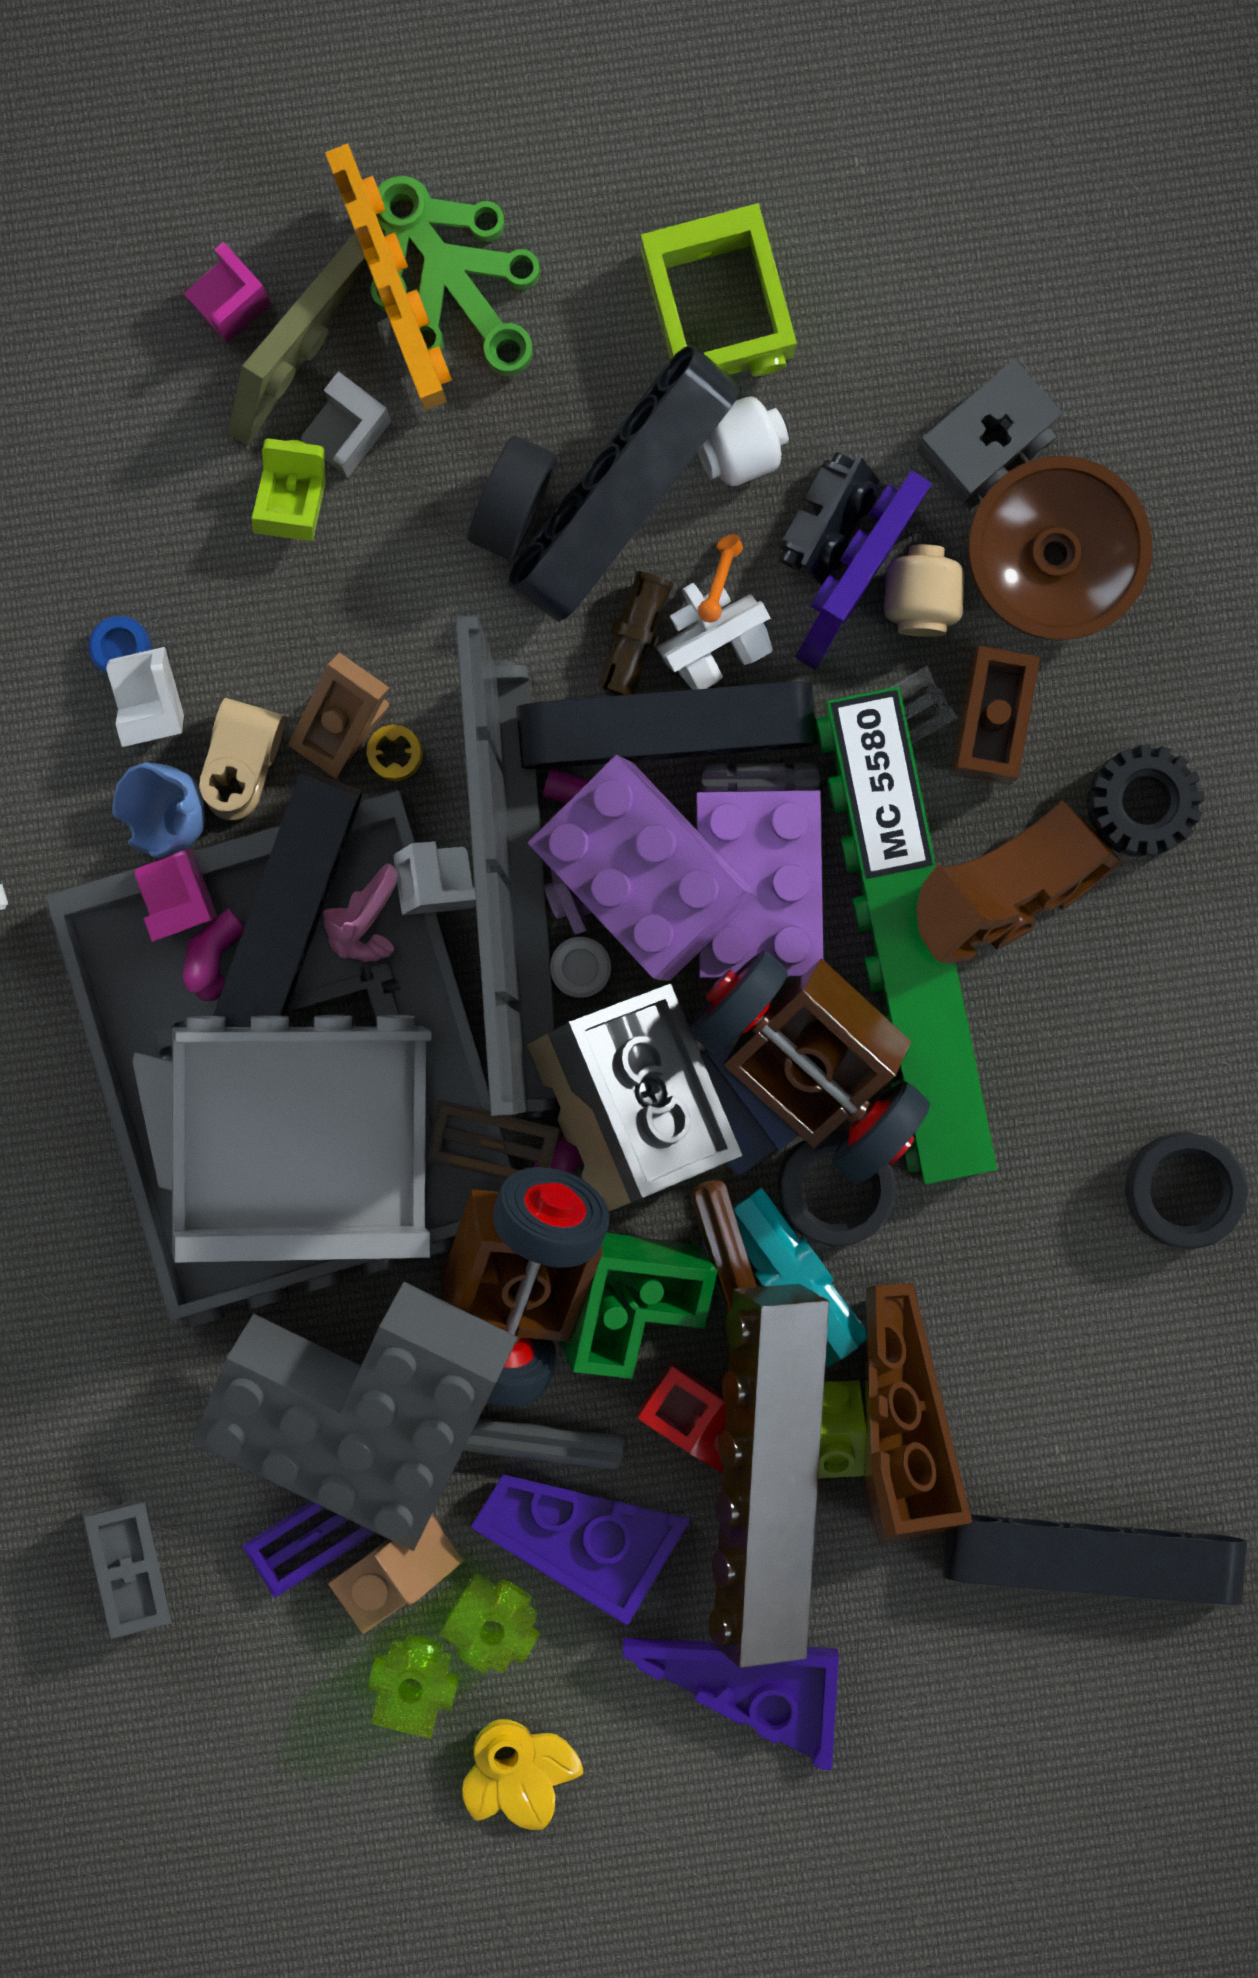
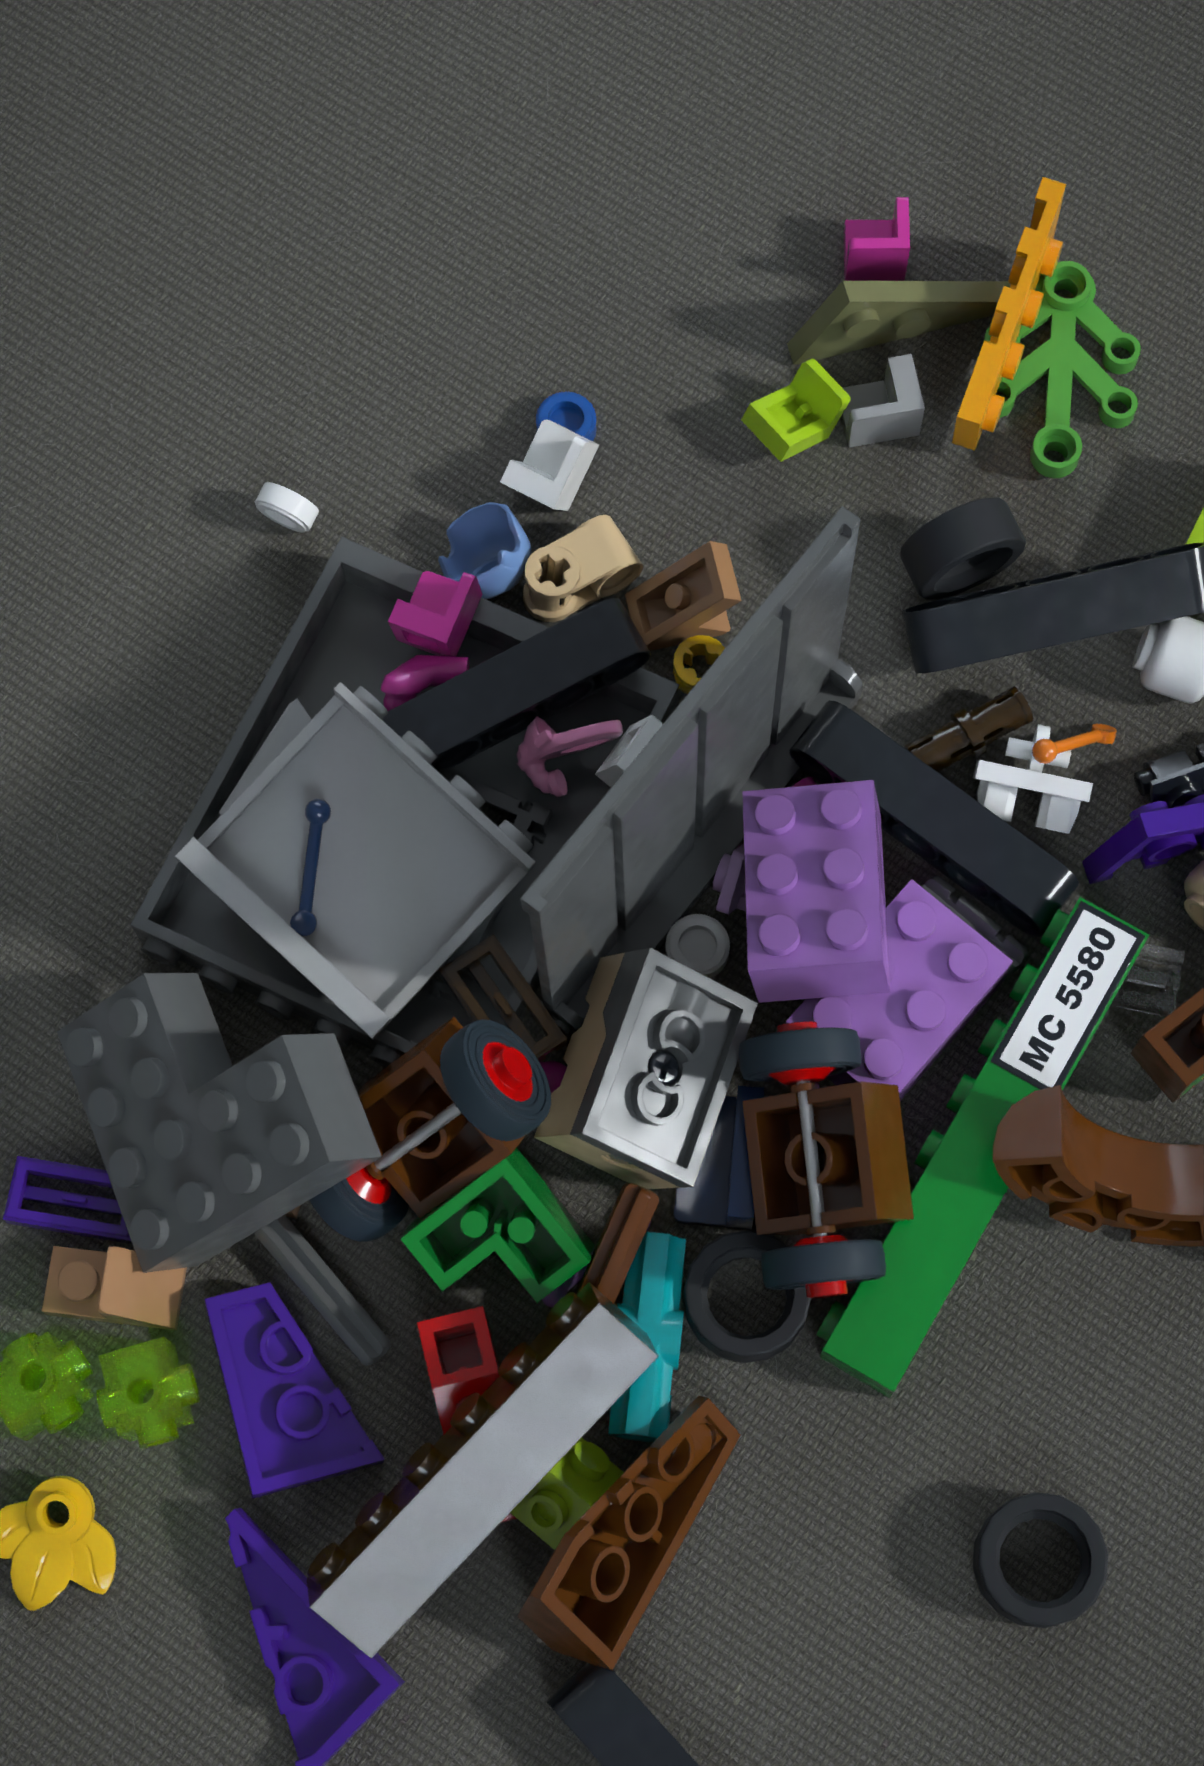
camera: 45 degrees right, 15 degrees down
(299, 1215) = (317, 814): none -> dark blue hinge

